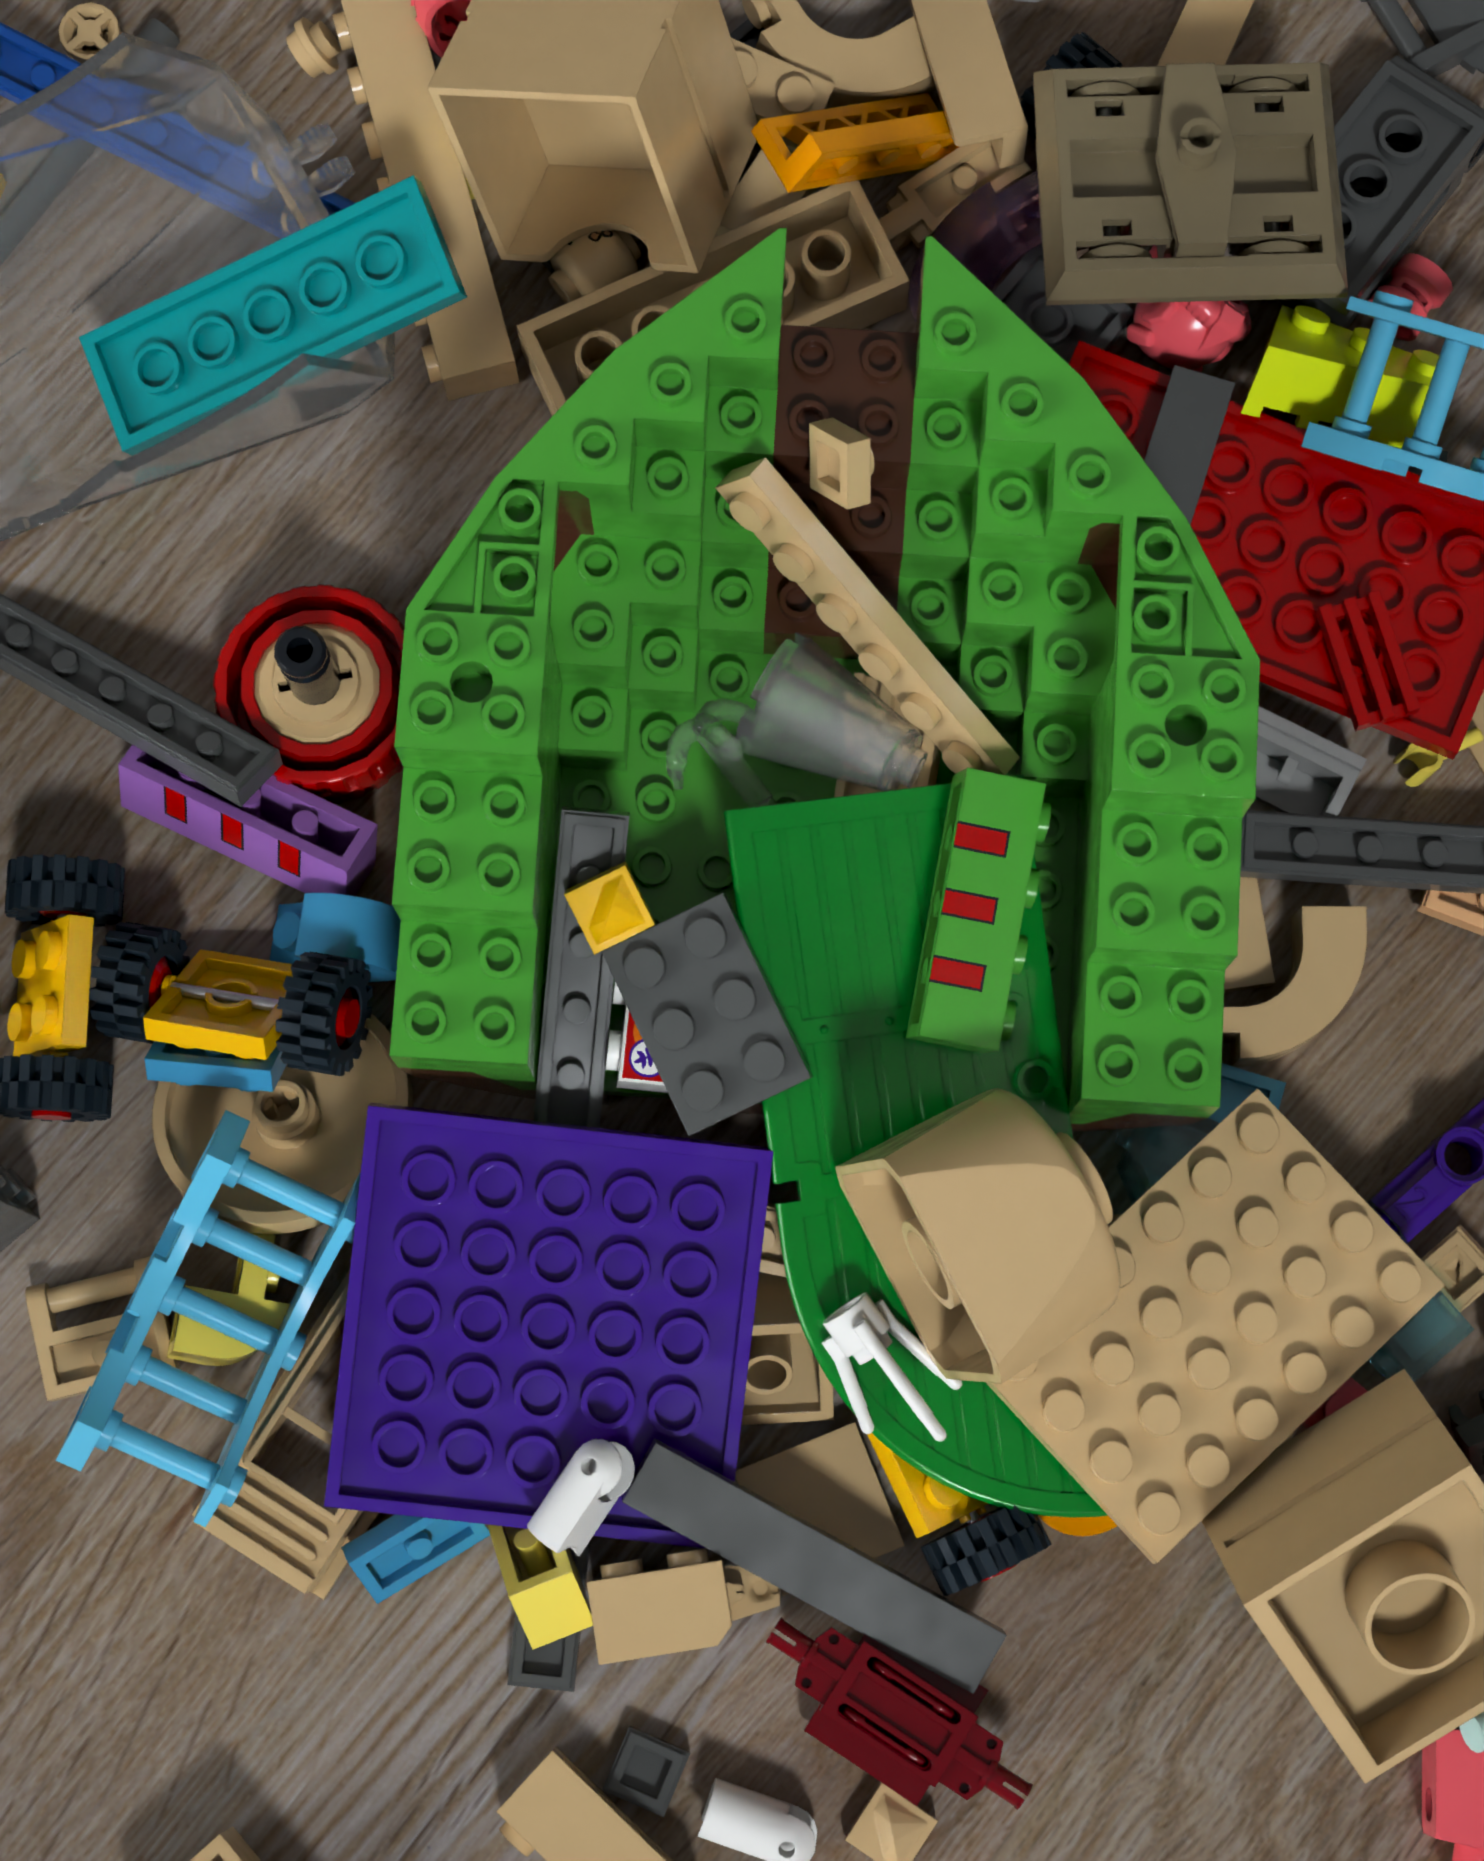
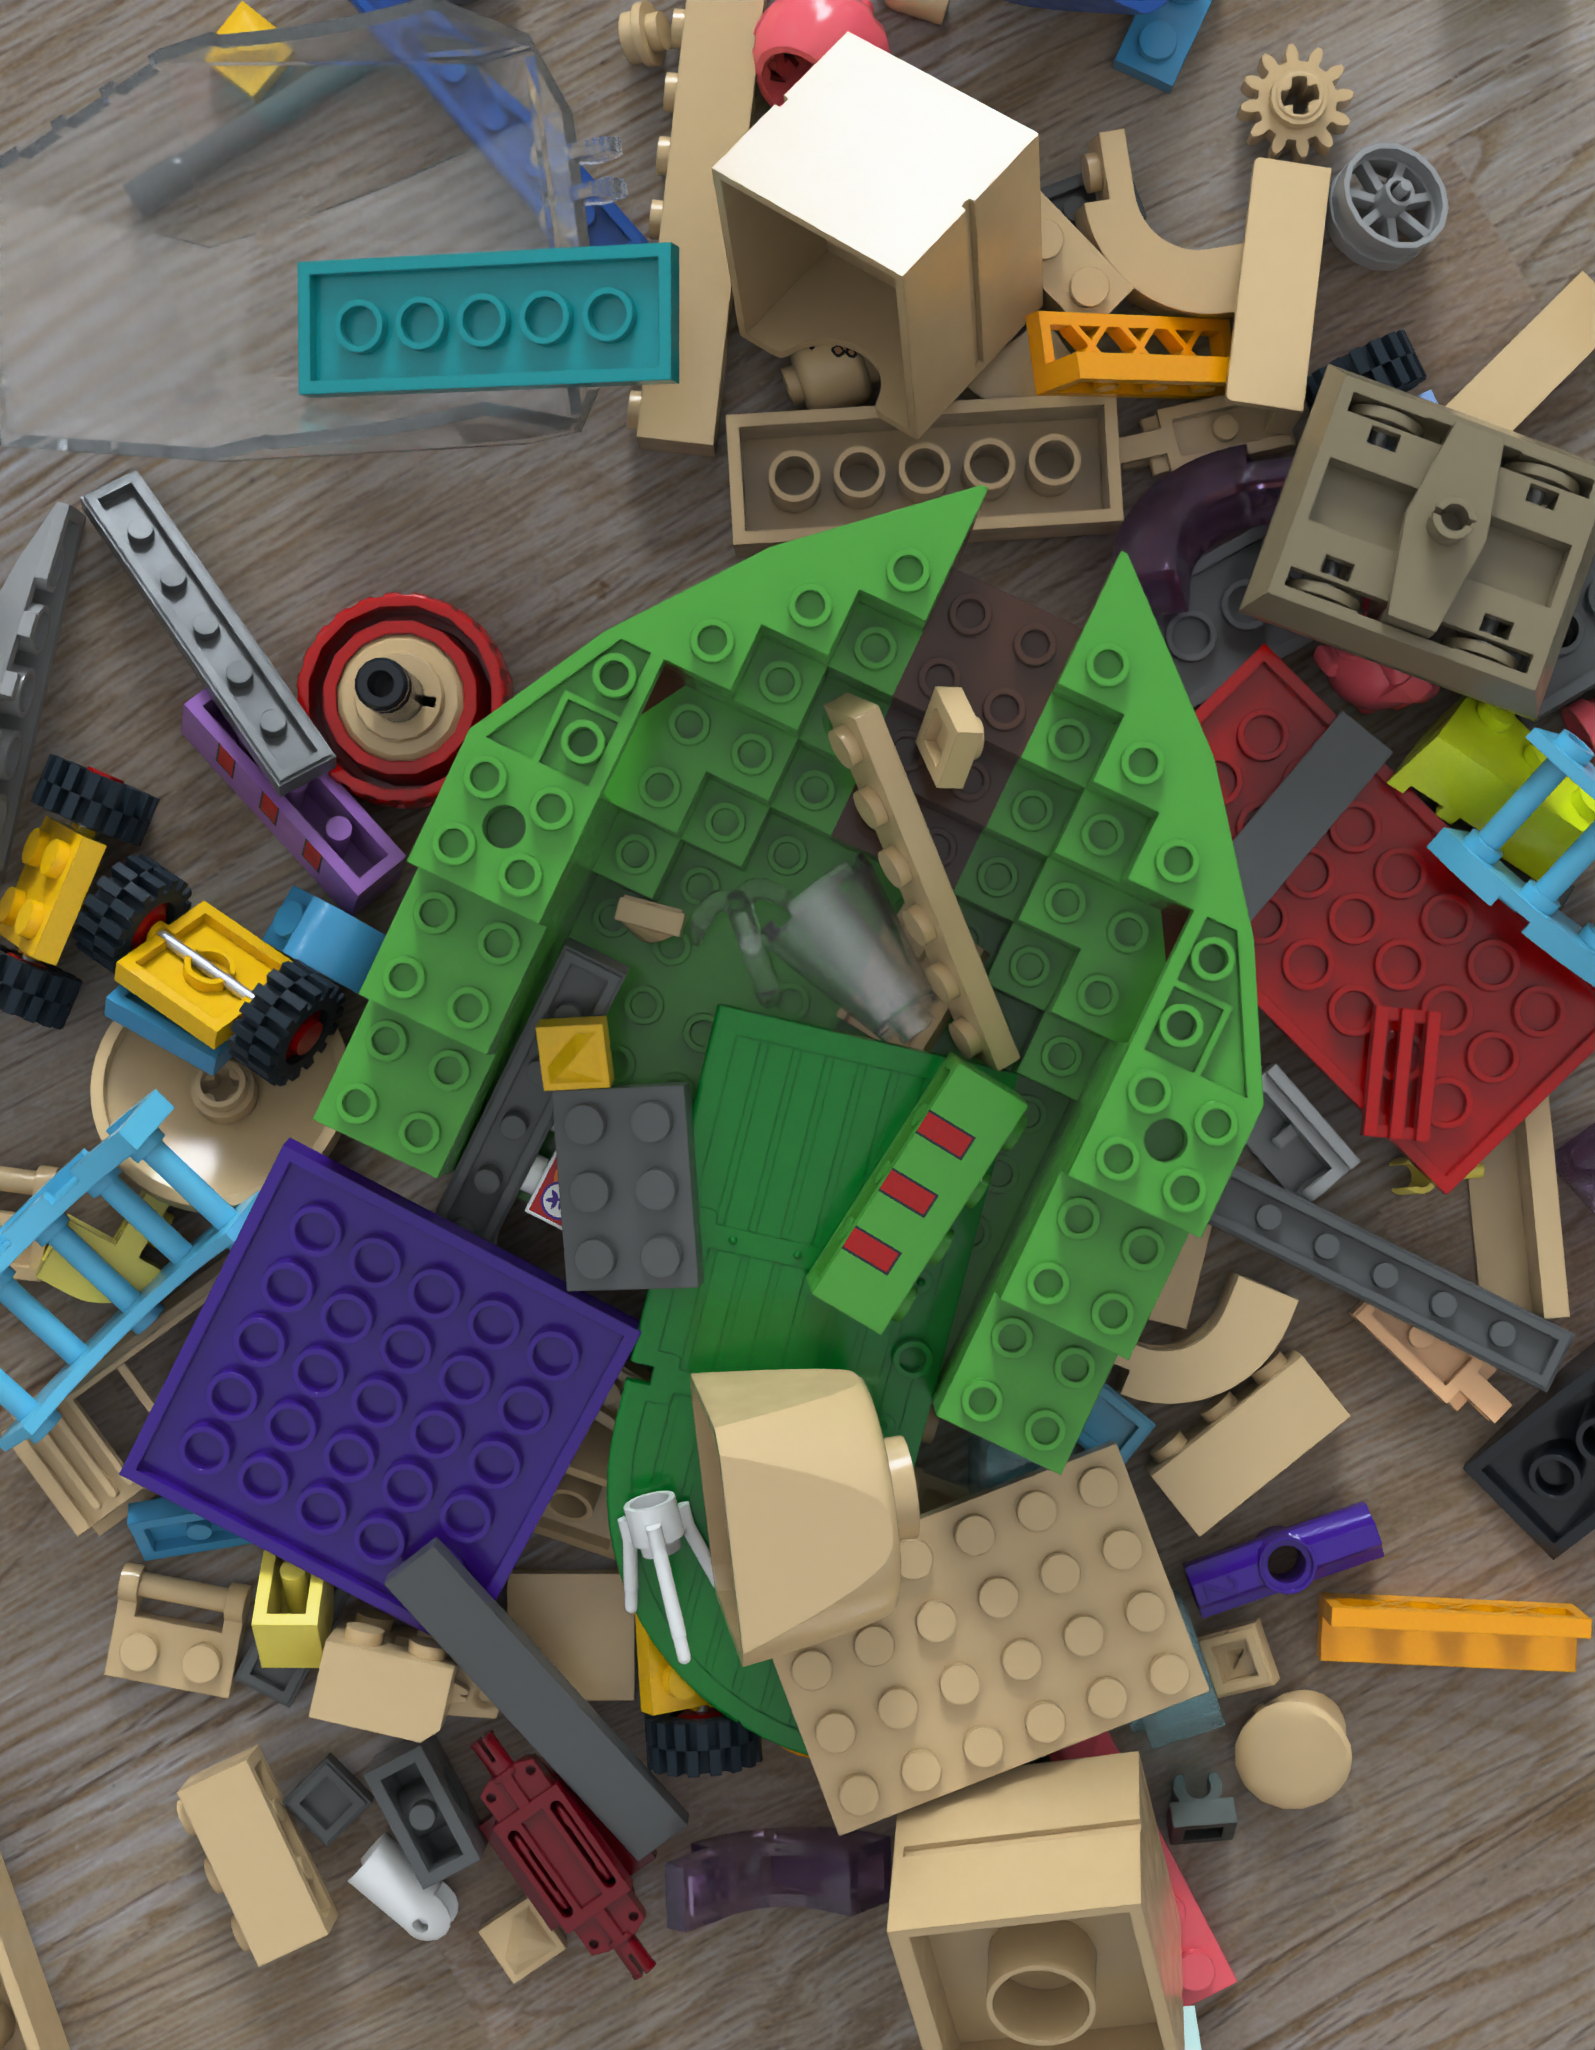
camera: 25 degrees right, 10 degrees up
(437, 1682) = (173, 1649): none -> tan plate
(583, 1496) = (349, 1564): white piece -> none
(628, 774) = (650, 920): none -> tan tile
(747, 1728) = (426, 1809): none -> dark grey brick
(1115, 1652) = (777, 1870): none -> clear purple arch
(1373, 1060) = (1245, 1439): none -> tan brick

